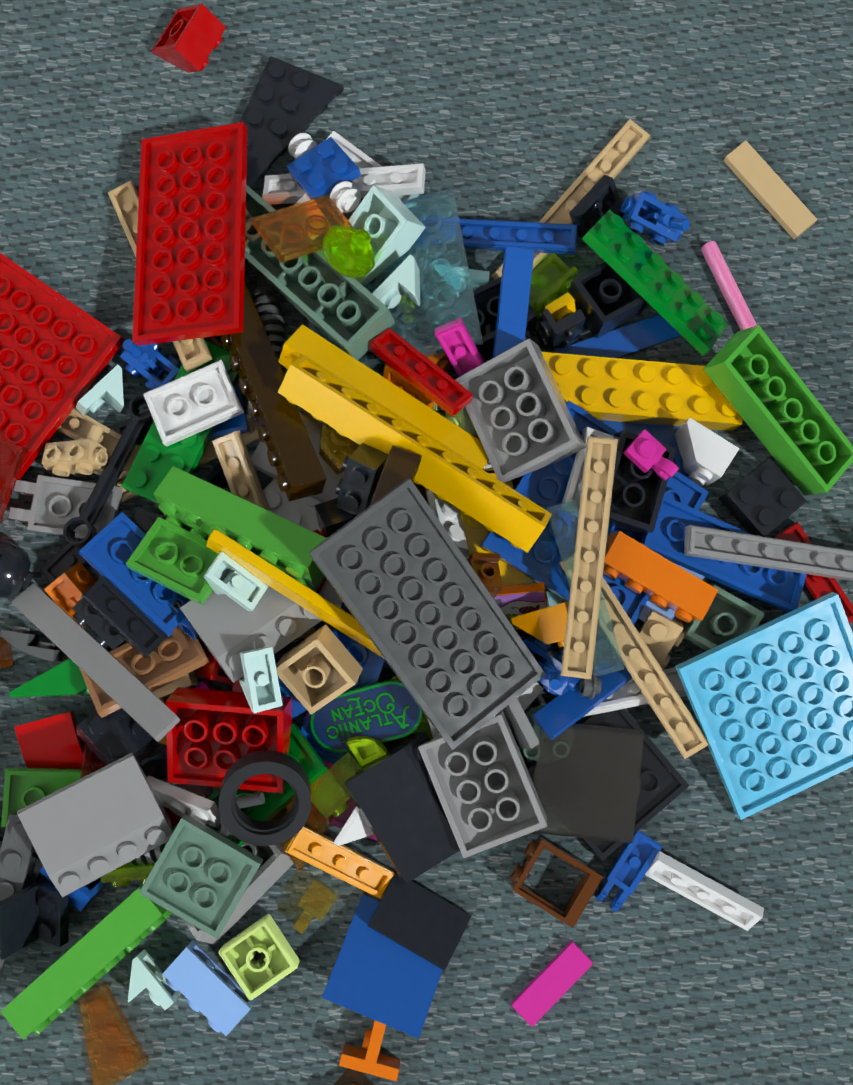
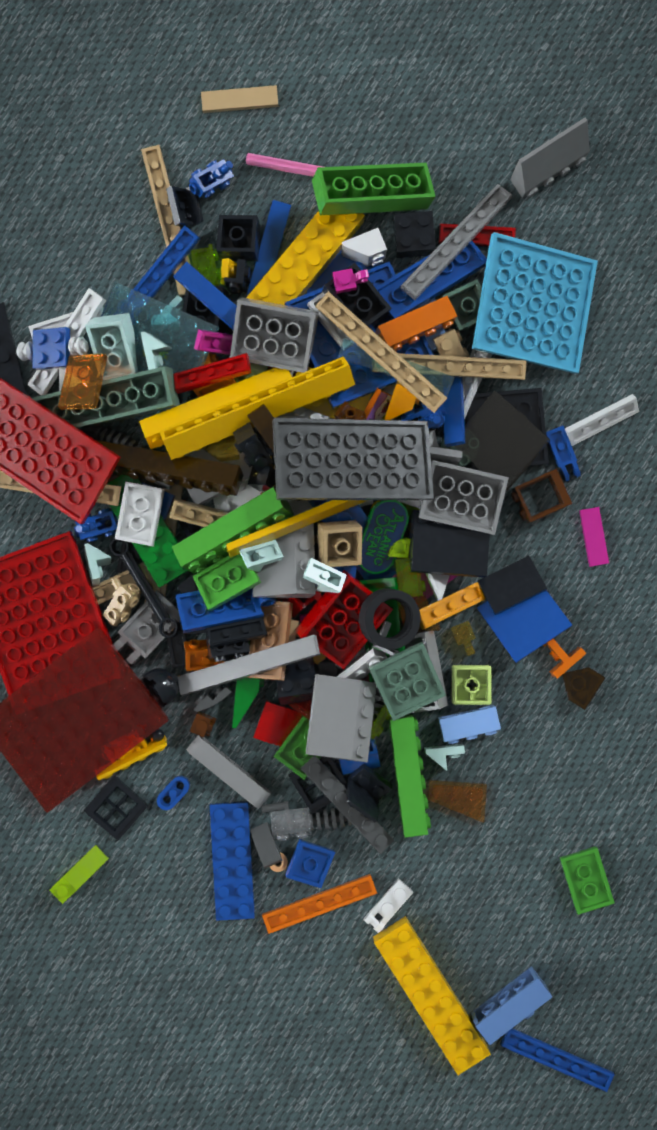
camera: 65 degrees left, 5 degrees up
(349, 251) = (115, 365): clear neon green dish -> none
(590, 687) = (451, 402): dark grey plate -> none
(655, 282) = (249, 204): green plate -> none

